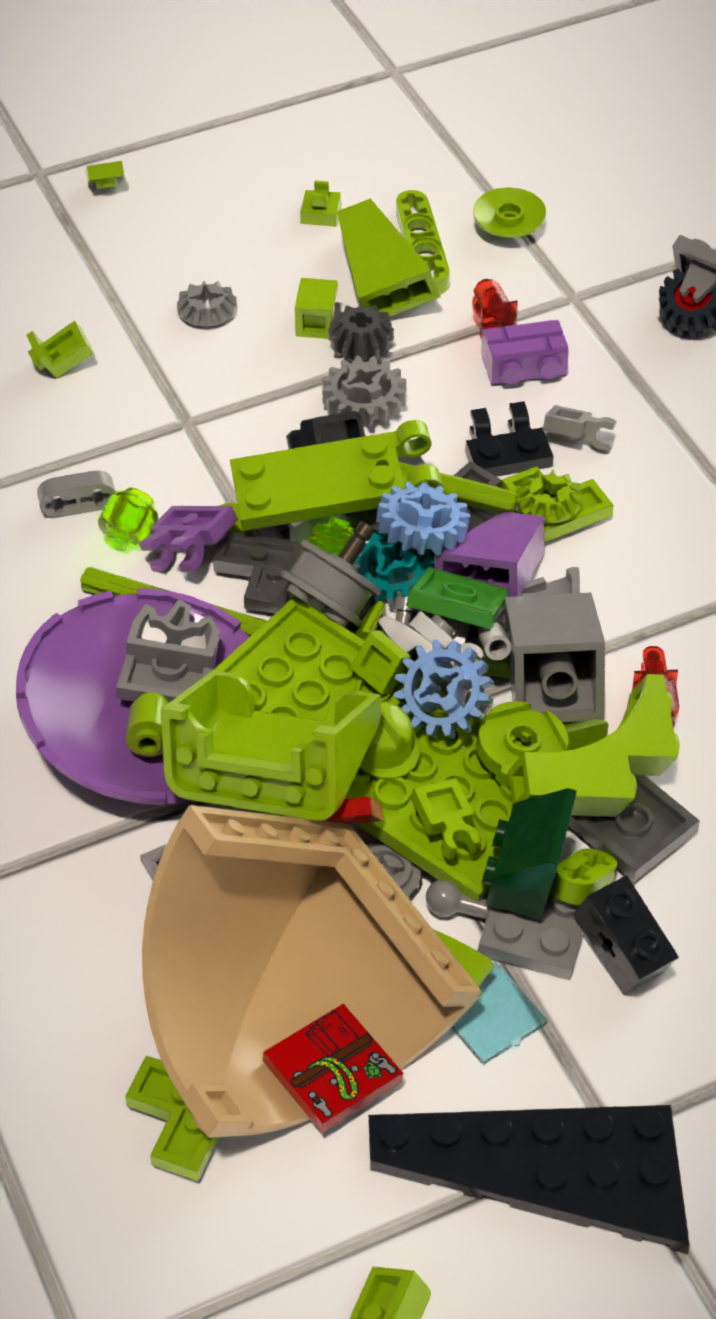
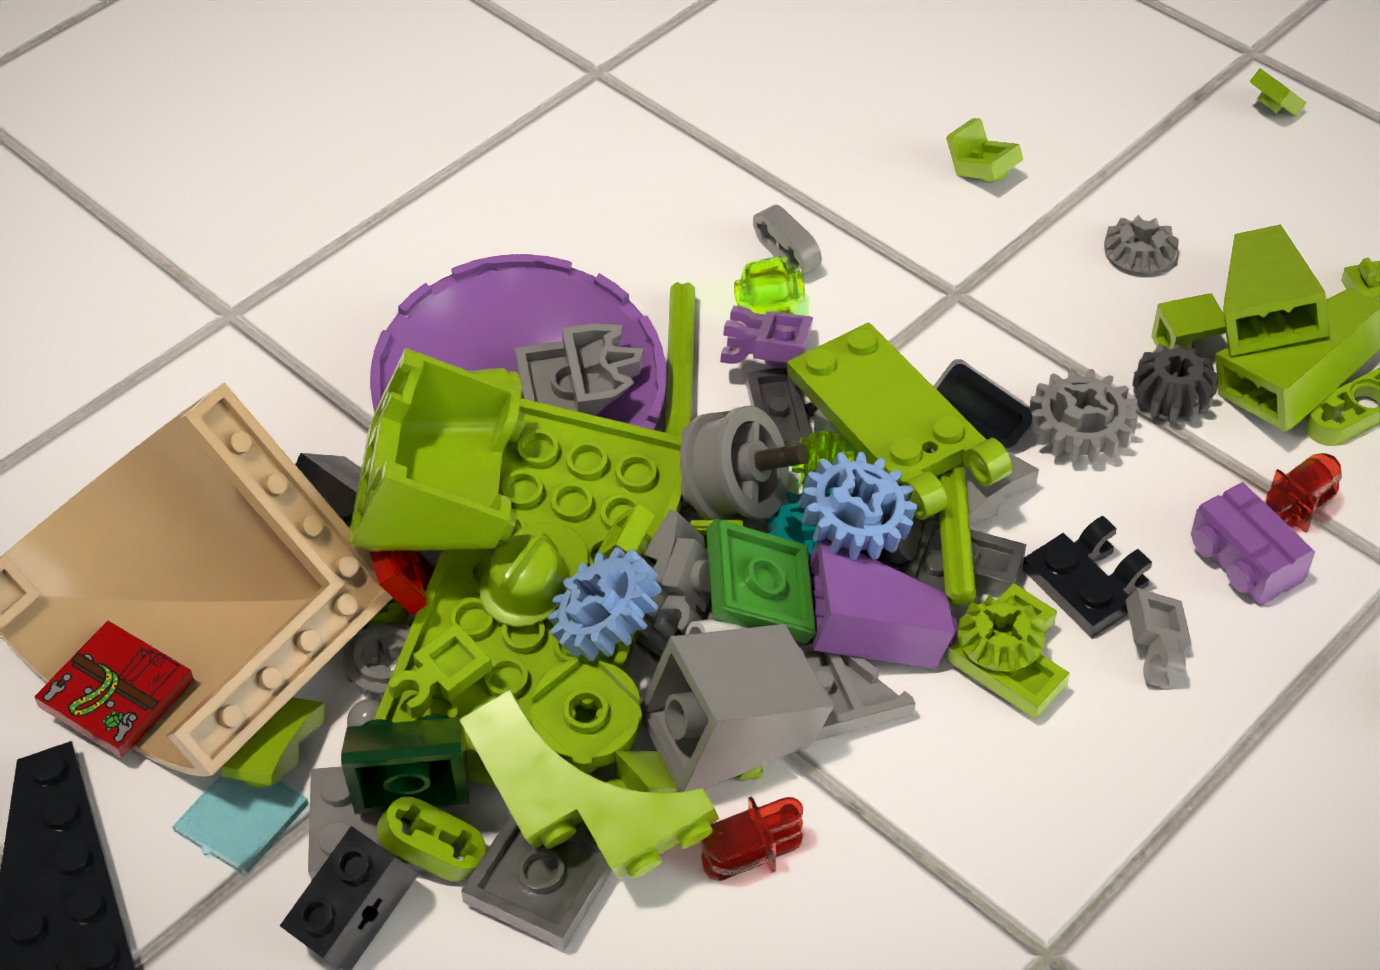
camera: 70 degrees right, 0 degrees up
(323, 245) = (1271, 294): none -> lime slope

